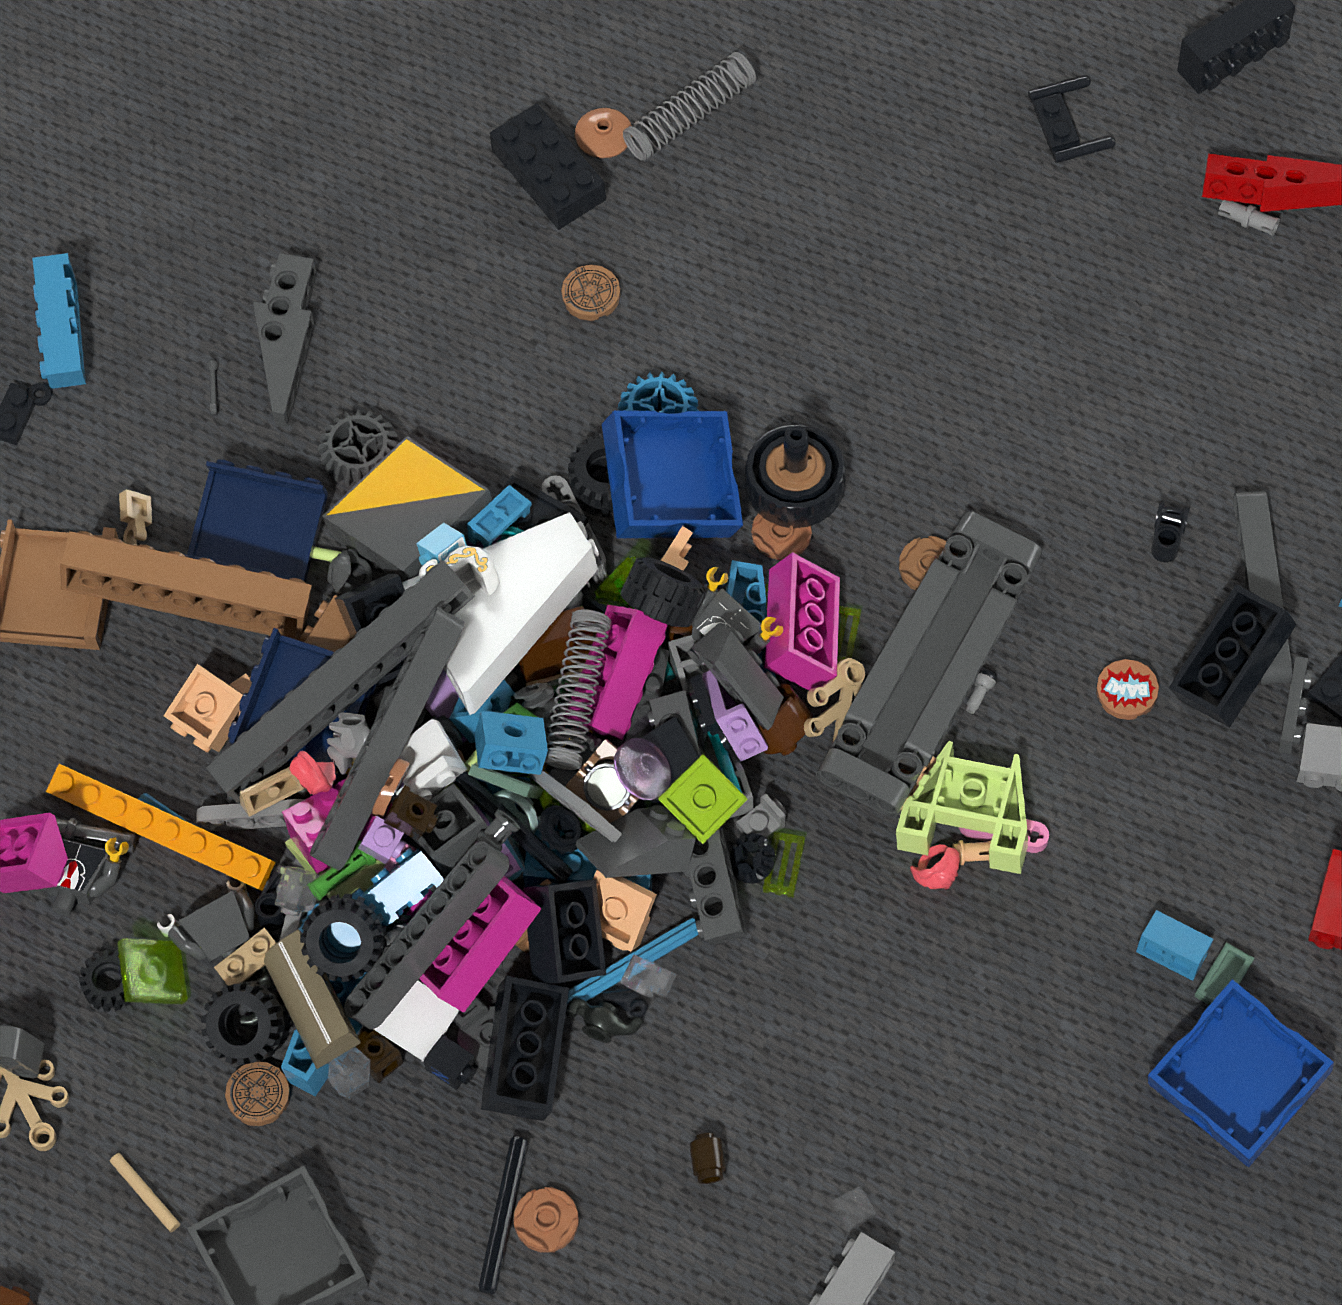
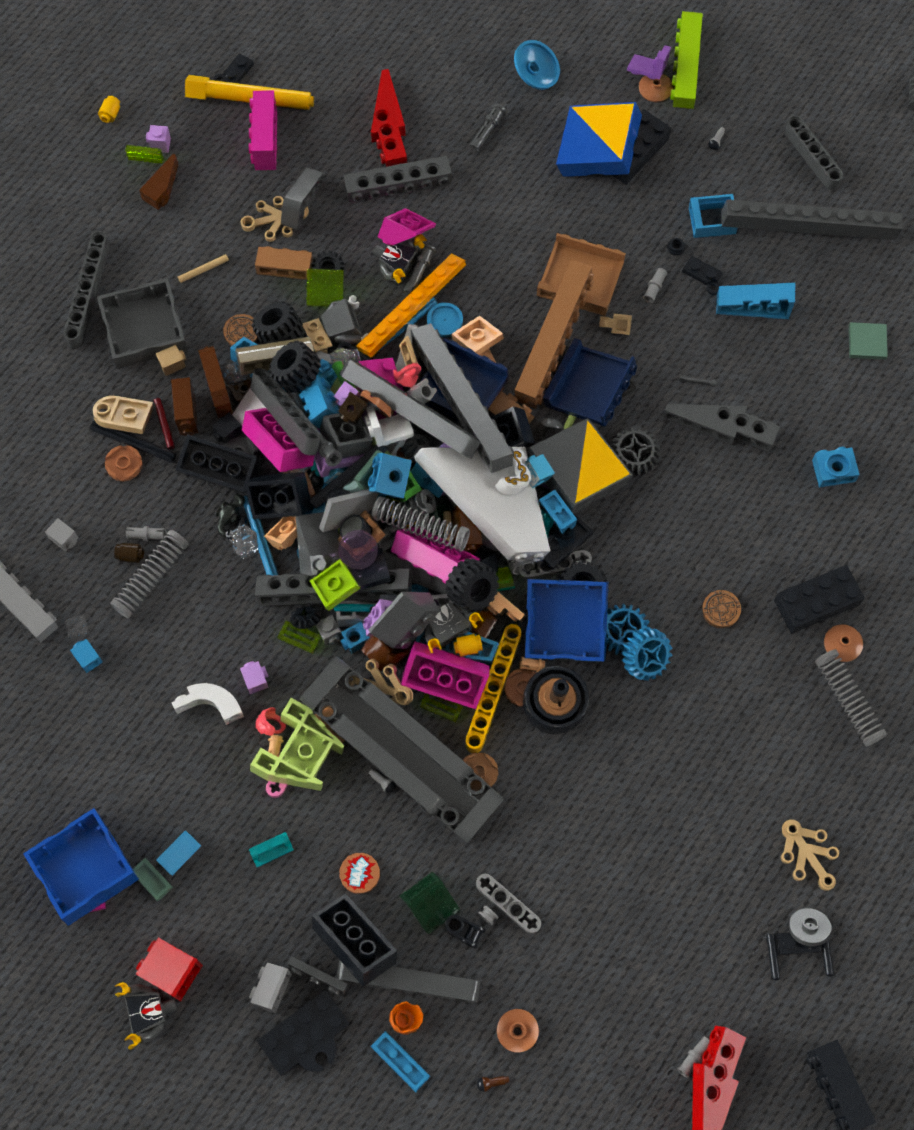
camera: 100 degrees right, 5 degrees up
(53, 474) = (655, 285): none -> light grey pin
(97, 168) = (868, 341): none -> sand green tile
(112, 1053) = (283, 262): none -> medium nougat brick
(172, 761) = (445, 318): none -> dark azure piece
(325, 192) = (841, 458): none -> dark azure brick
(339, 1189) = (171, 360): none -> tan brick
(376, 1088) = (215, 381): none -> reddish brown piece
(430, 1132) = (184, 406): none -> reddish brown brick
(458, 1174) = (164, 424): none -> dark red bar
(459, 1238) = (123, 413): none -> tan plate
(665, 1093) = (174, 537): none -> light grey piece
(666, 1143) = (145, 533): none -> light grey pin
(694, 365) = (657, 649): none -> dark azure gear
(703, 1275) = (62, 535): none -> light grey brick
(747, 533) = (532, 664): none -> light nougat pin
(750, 593) = (468, 645): none -> yellow brick
(767, 764) = (355, 630): none -> dark azure brick
(842, 563) = (494, 679): none -> yellow beam
(869, 907) = (254, 676): none -> lavender brick
(901, 1173) = (86, 655): none -> dark azure brick
(922, 940) = (211, 695): none -> white arch
(928, 130) = (807, 851): none -> tan plant
(1033, 108) = (810, 927): none -> piece
(1109, 483) = (510, 901): none -> light grey beam
(1128, 818) = (271, 849): none -> teal hinge
(1137, 504) = (488, 915): none -> light grey bush
(1139, 585) = (430, 902): none -> clear green bracket
(1289, 422) = (522, 1020): none -> nougat dish
(1315, 573) = (406, 1018): none -> orange hair

